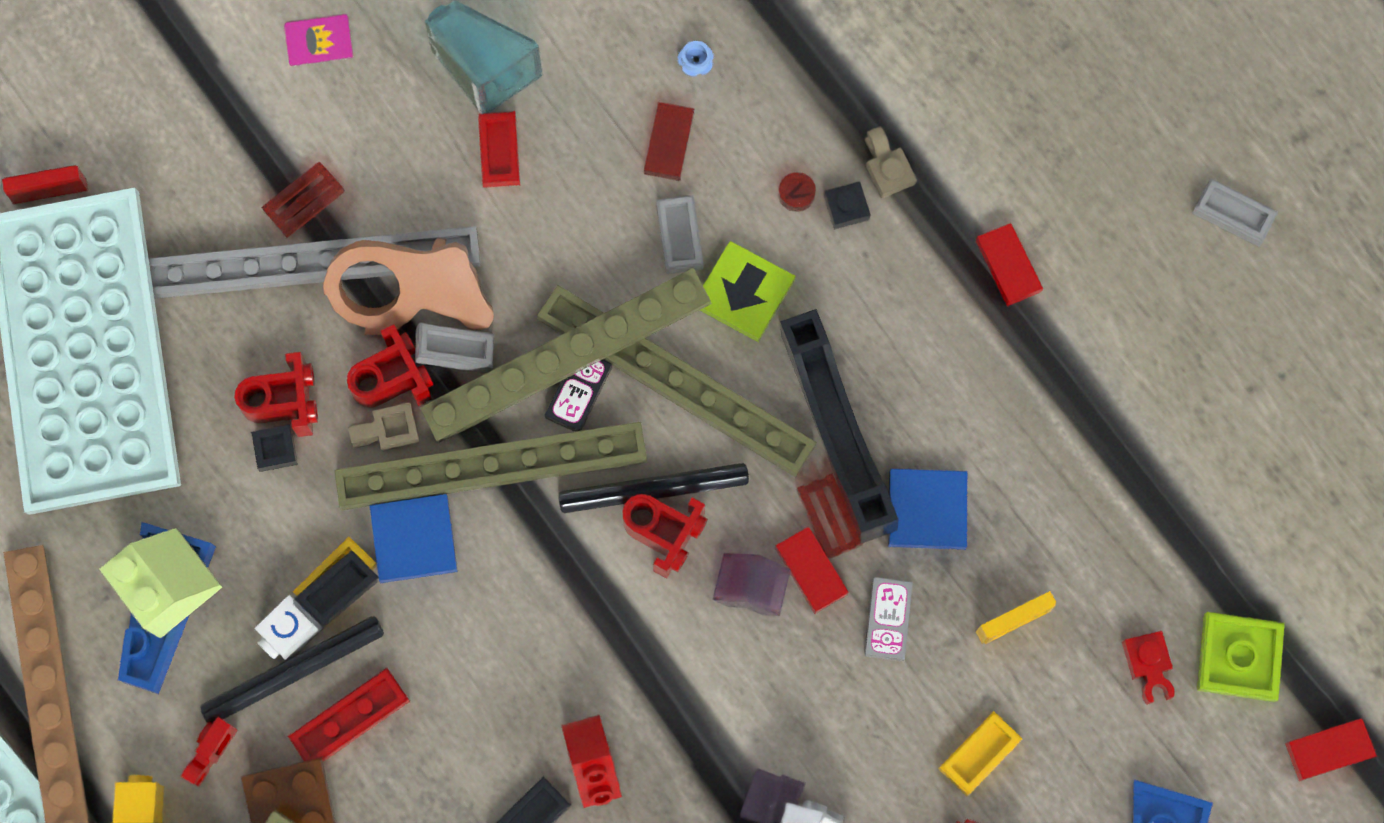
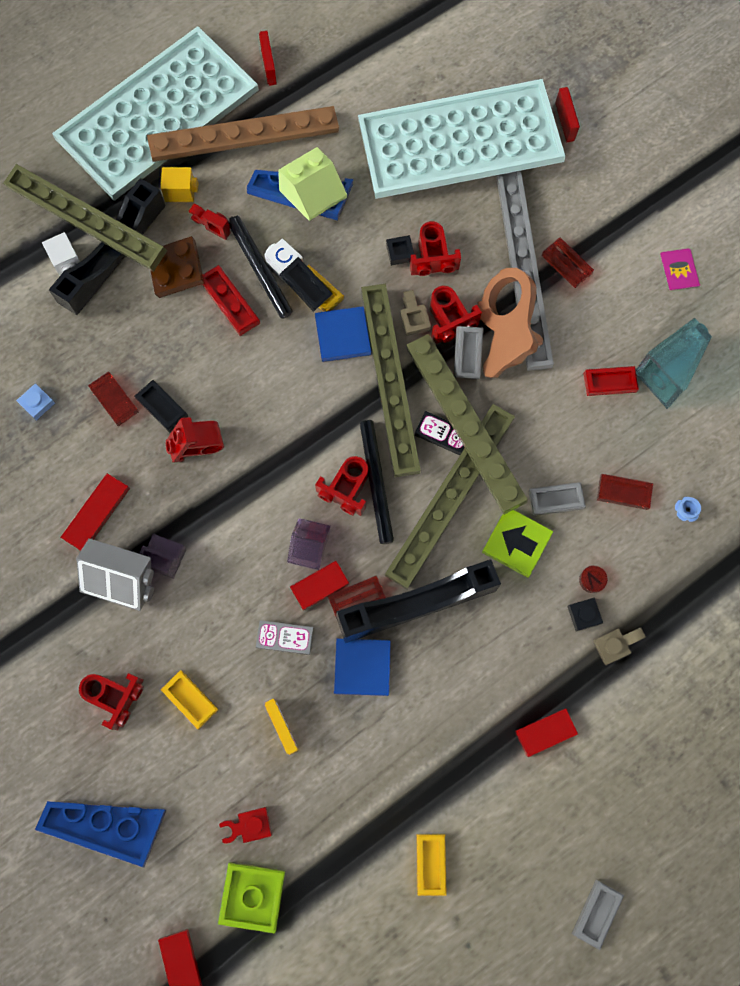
camera: 90 degrees right, 0 degrees up
(1185, 420) = (431, 865): none -> yellow tile

